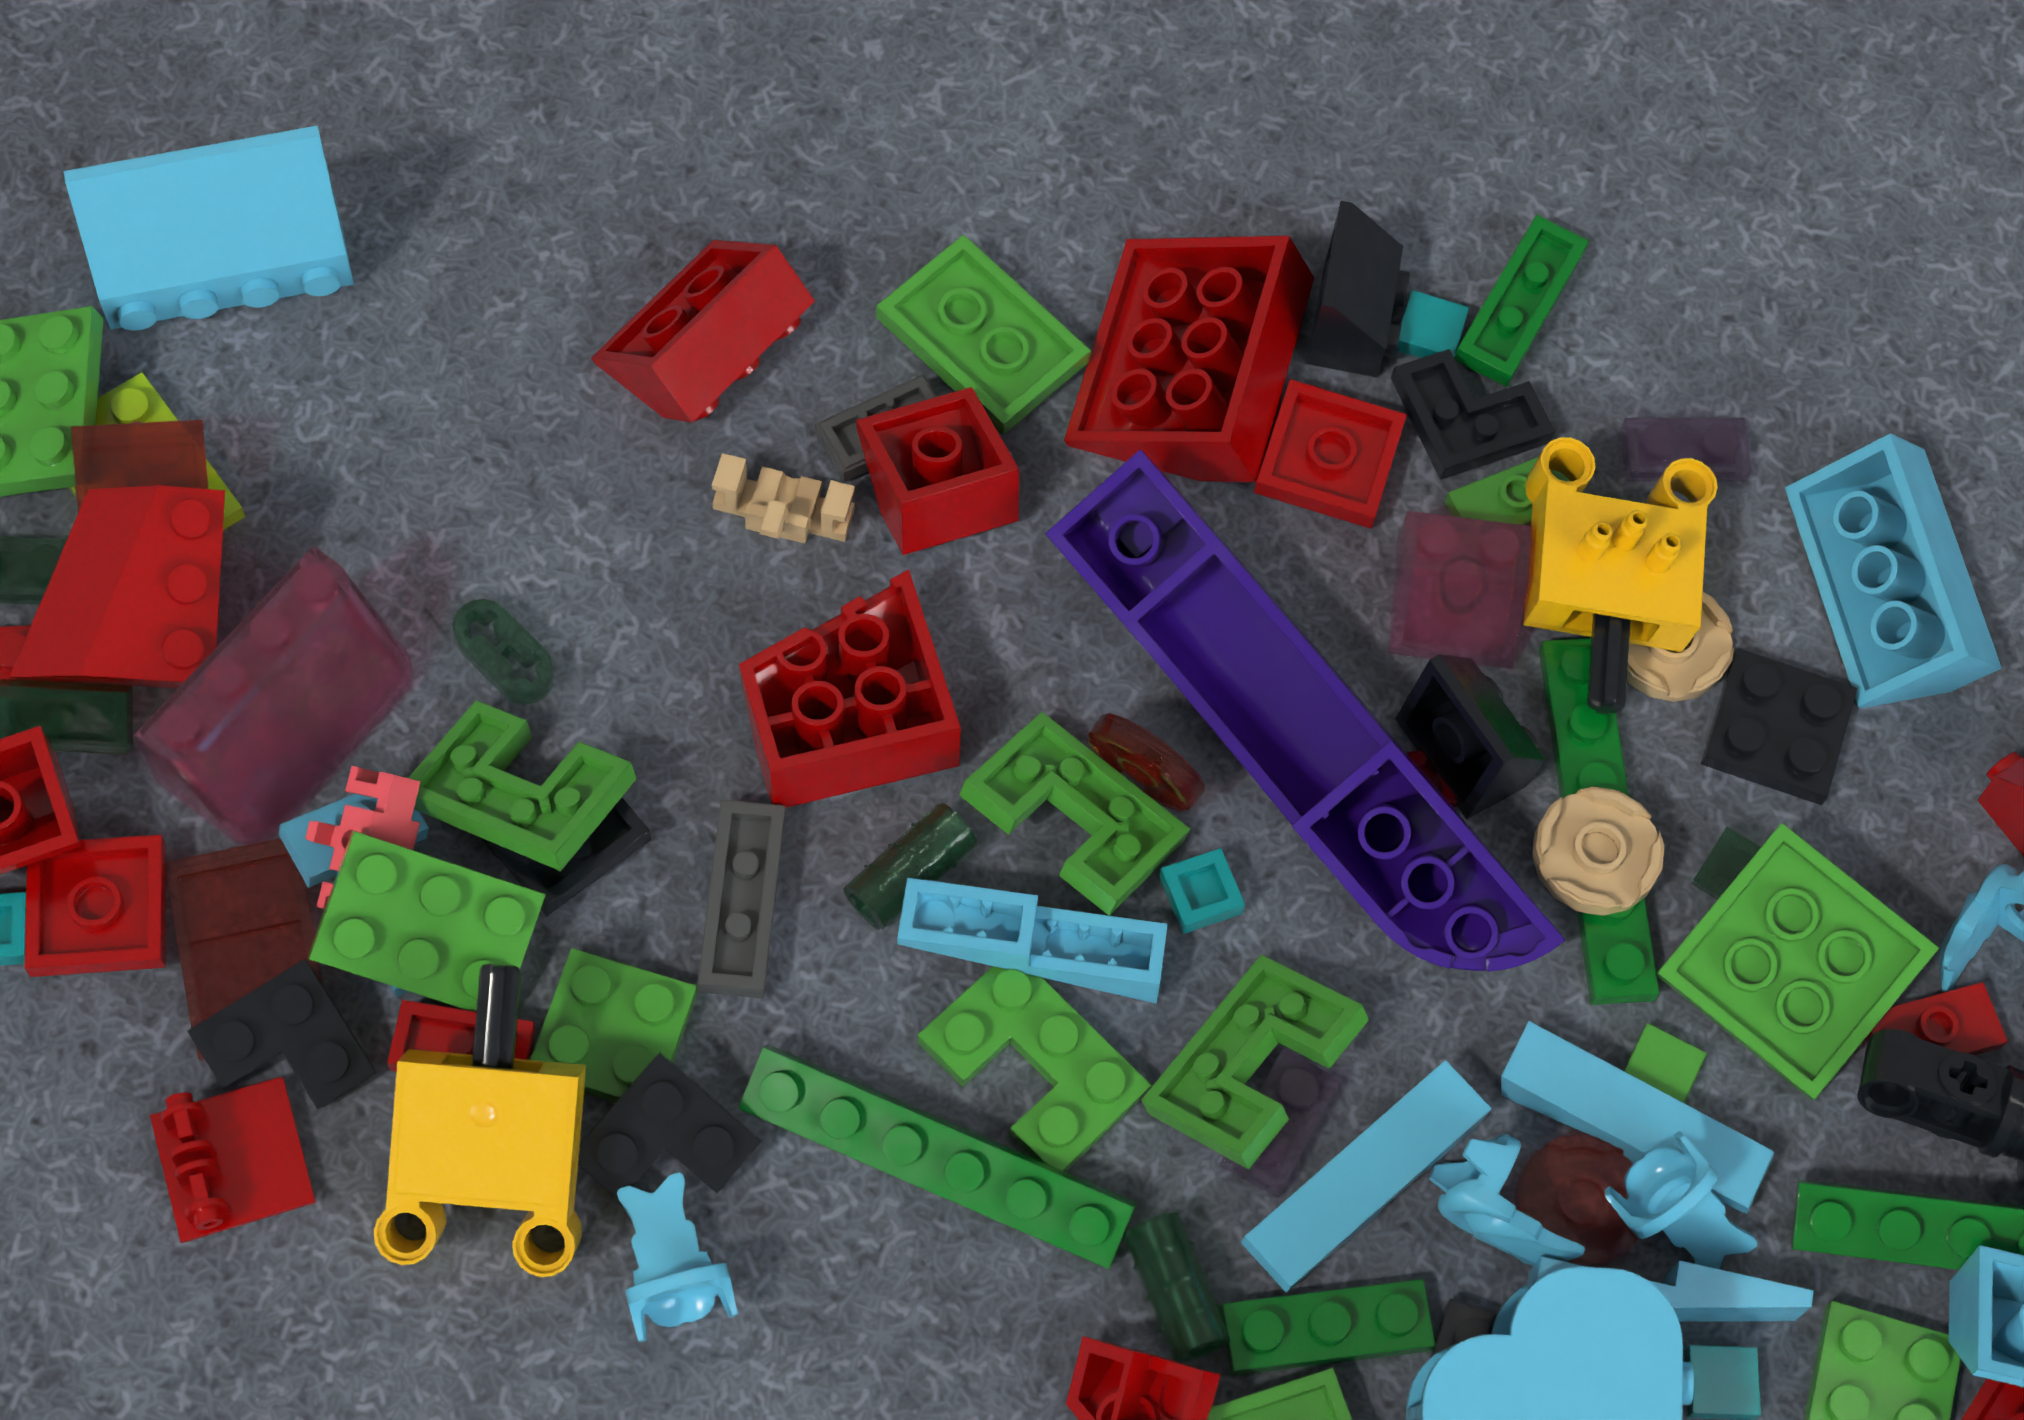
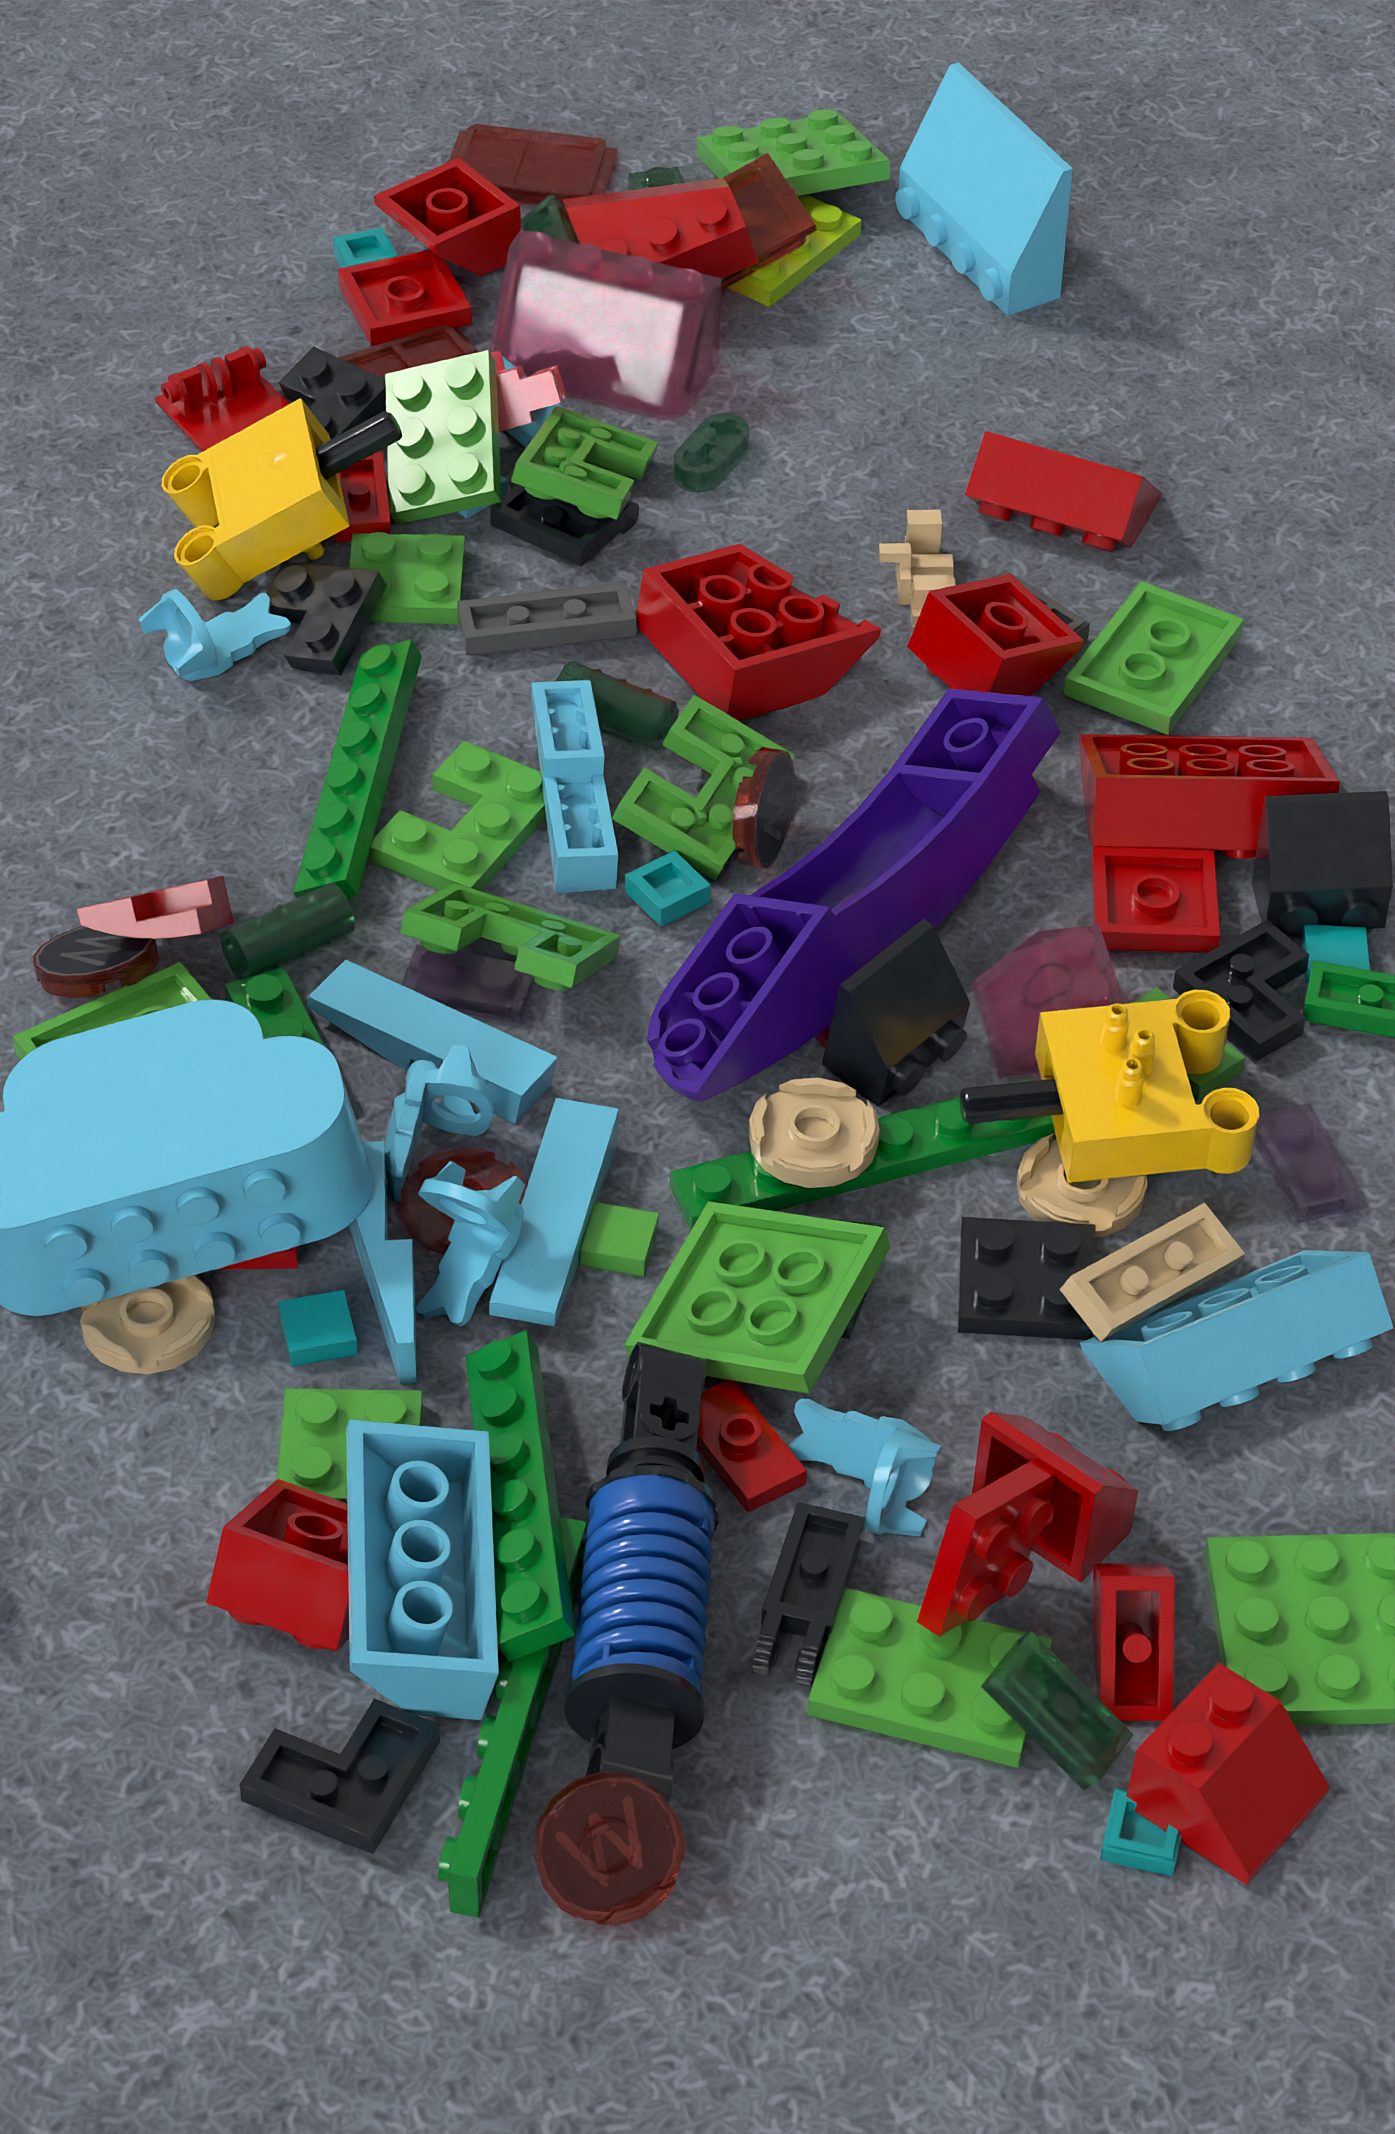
camera: 80 degrees right, 20 degrees down
(1821, 617) = (1152, 1272): none -> tan plate

